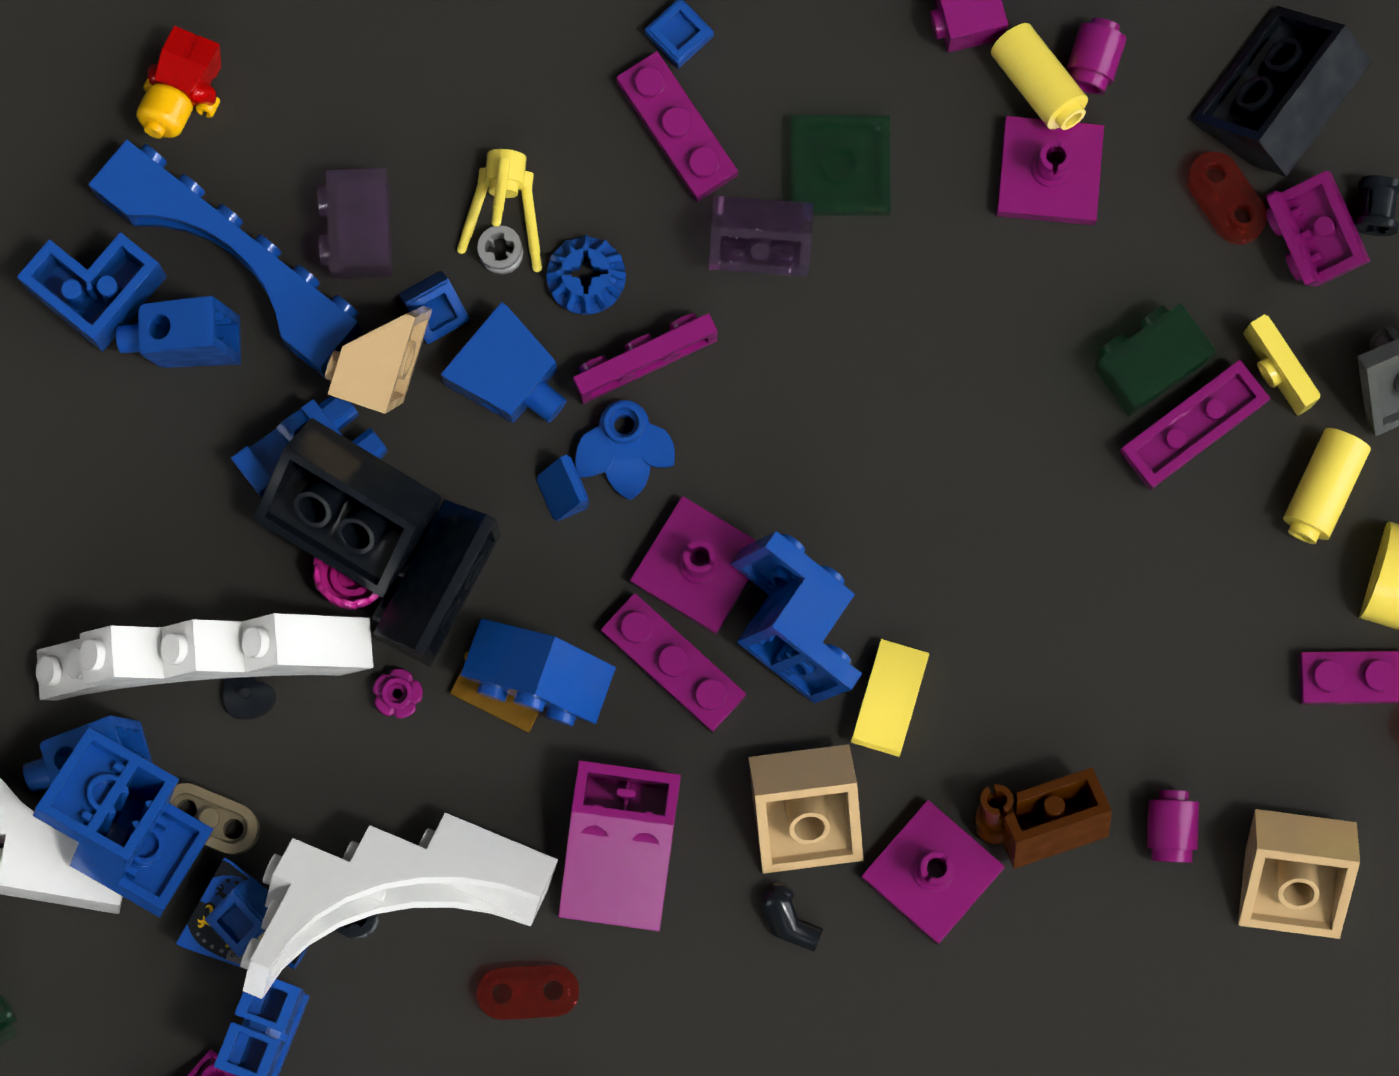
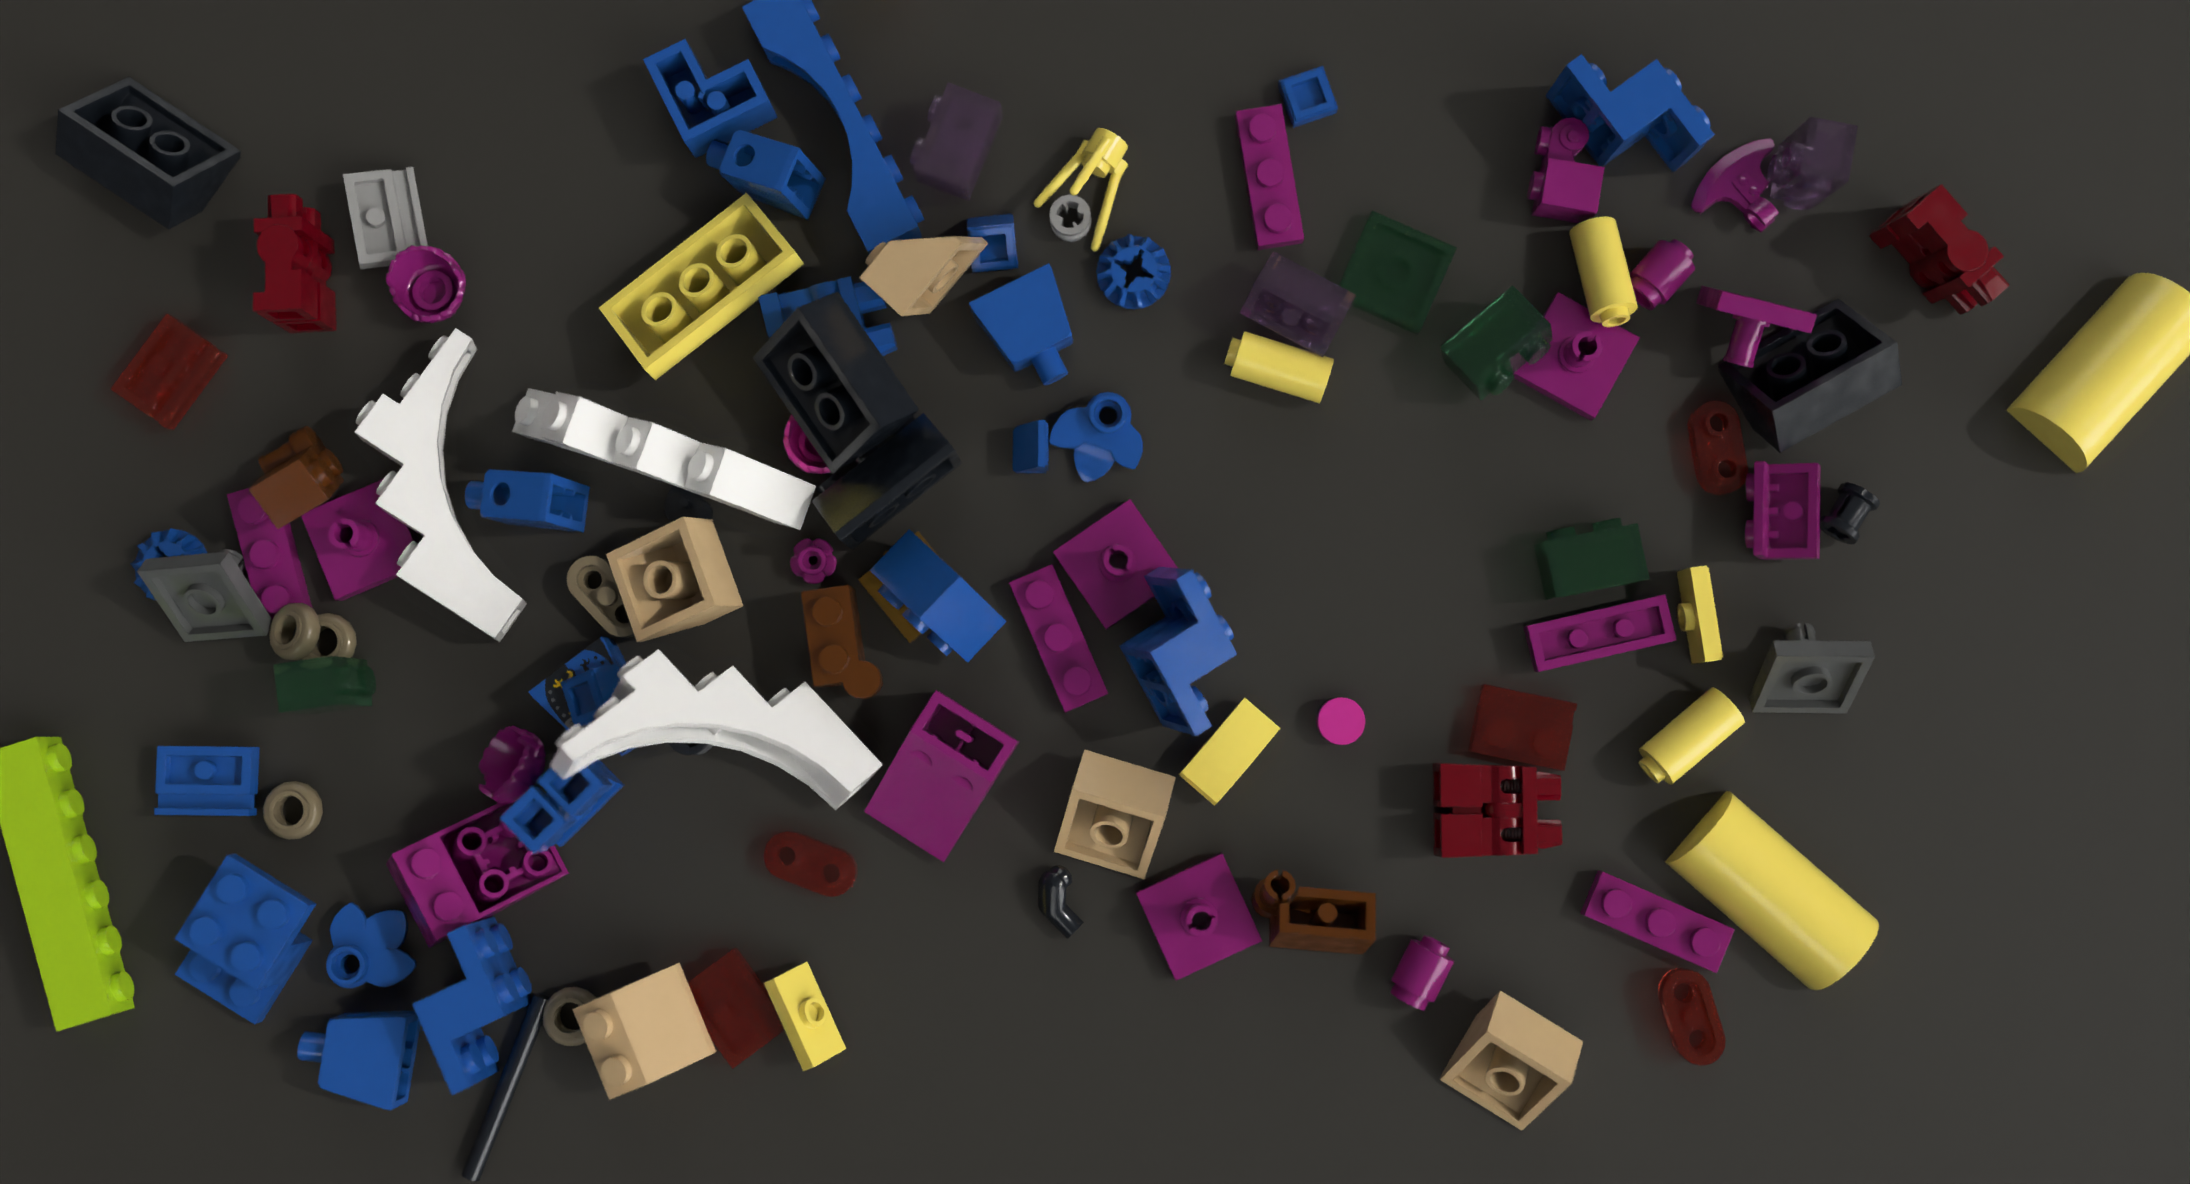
camera: 30 degrees right, 5 degrees up
(123, 822) = (521, 569): blue bracket -> none
(168, 473) = (701, 286): none -> light yellow brick
(188, 1025) = (511, 764): none -> magenta hair
(269, 770) = (674, 578): none -> tan slope
(459, 762) = (837, 642): none -> reddish brown hinge
(644, 356) = (1151, 363): magenta plate -> none
(769, 304) = (1279, 366): none -> light yellow brick
(970, 191) = (1498, 344): none -> clear green brick
(984, 620) = (1340, 721): none -> dark pink tile
(1157, 672) = (1469, 834): none -> dark red hips
(1163, 549) = (1522, 727): none -> clear red plate
(1201, 60) = (1751, 318): none -> magenta tile

